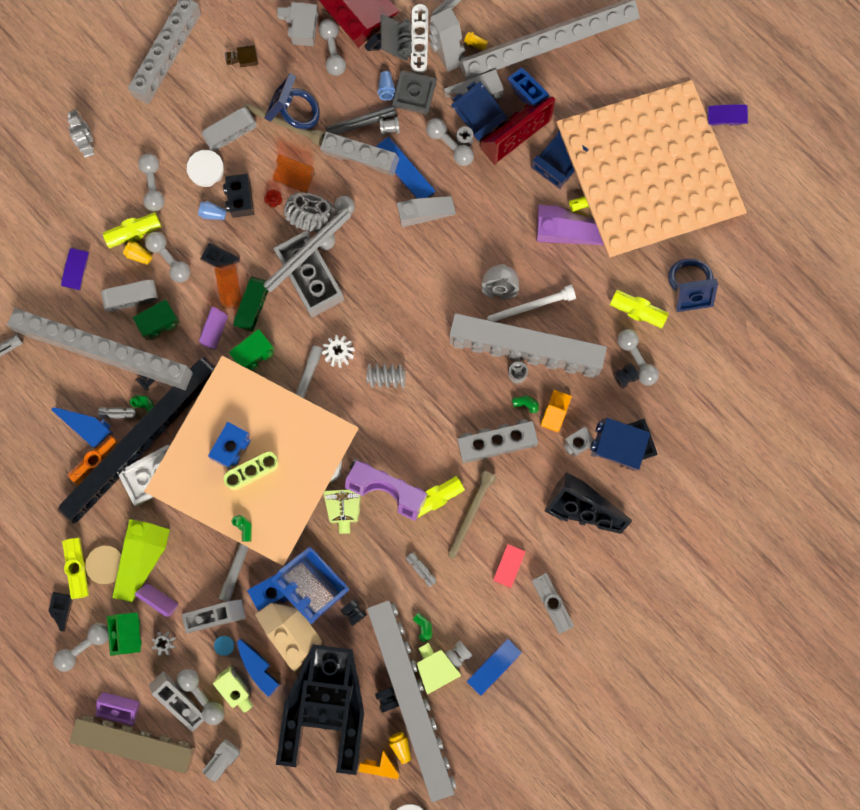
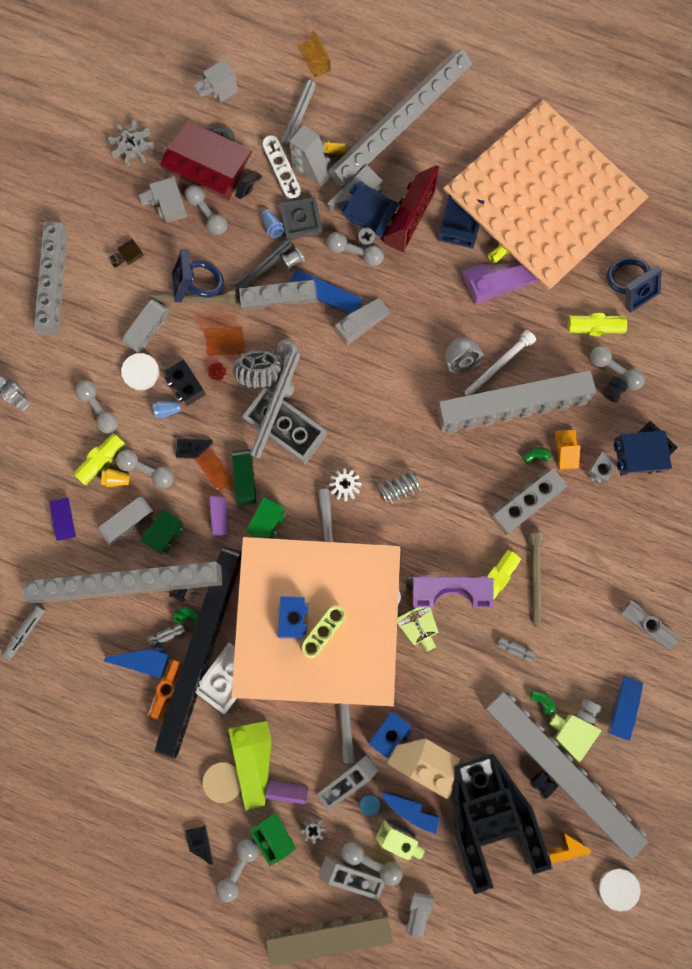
camera: 25 degrees left, 0 degrees up
(78, 581) = (189, 787): neon yellow piece -> none
(117, 708) = (297, 911): medium lavender slope -> none
(243, 525) = (341, 686): green arm -> none
(310, 584) = (425, 712): window -> none
(357, 615) = (475, 718): black wheel -> none
(396, 37) = (261, 175): dark grey hinge -> none
(400, 746) = (575, 820): yellow cone -> none
(509, 566) = (593, 609): coral tile -> none
(520, 370) = (517, 426): light grey wheel -> none
(527, 88) = (404, 169): blue slope -> none
(581, 503) = (630, 522): black wedge -> none
(728, 114) = (591, 116): dark purple slope -> none

